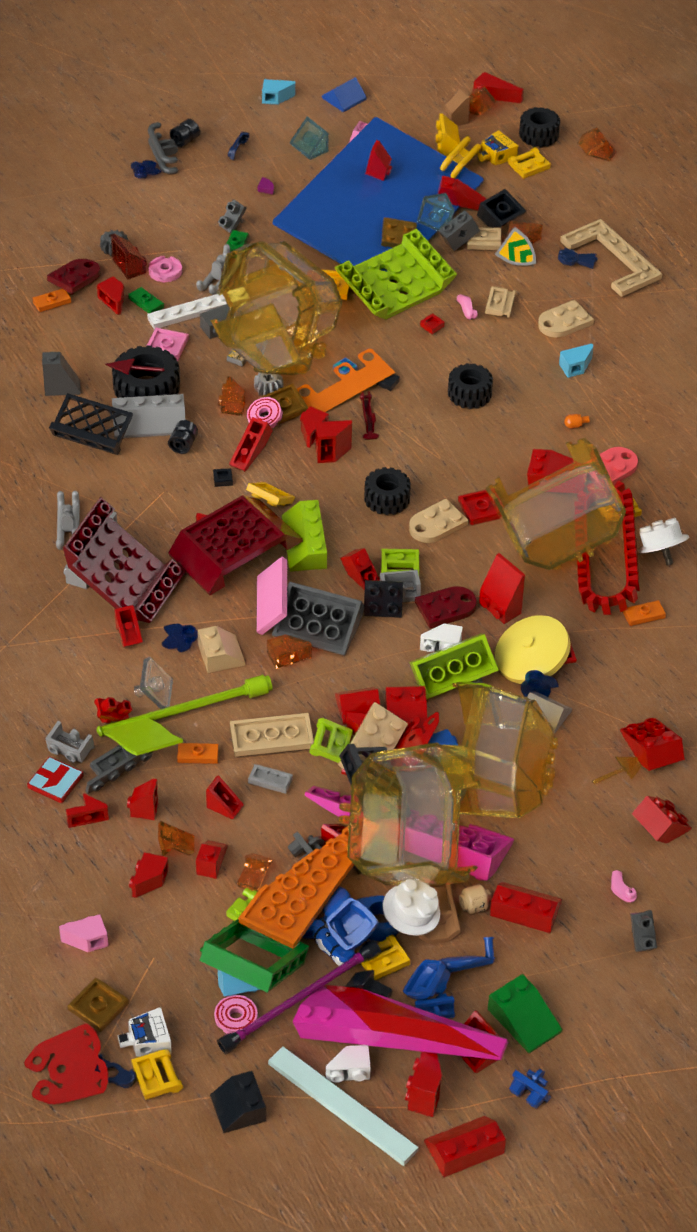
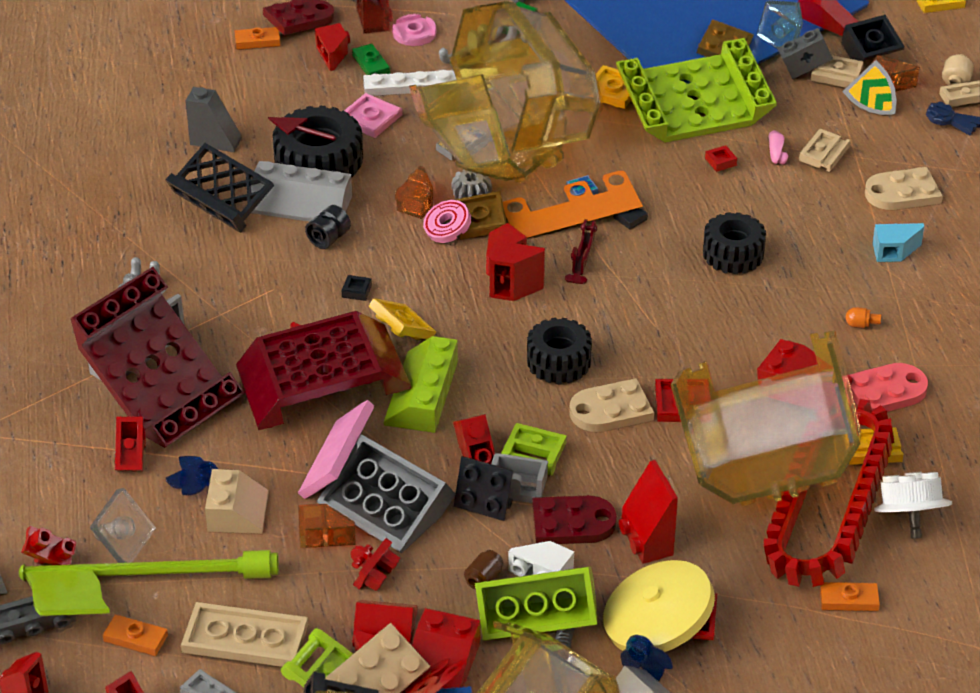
camera: 20 degrees right, 5 degrees down
(251, 443) = (411, 254): red slope -> none
(331, 665) = (369, 562): none -> red hips
(406, 653) = (483, 568): none -> reddish brown brick
(567, 221) = (957, 70): none -> tan head

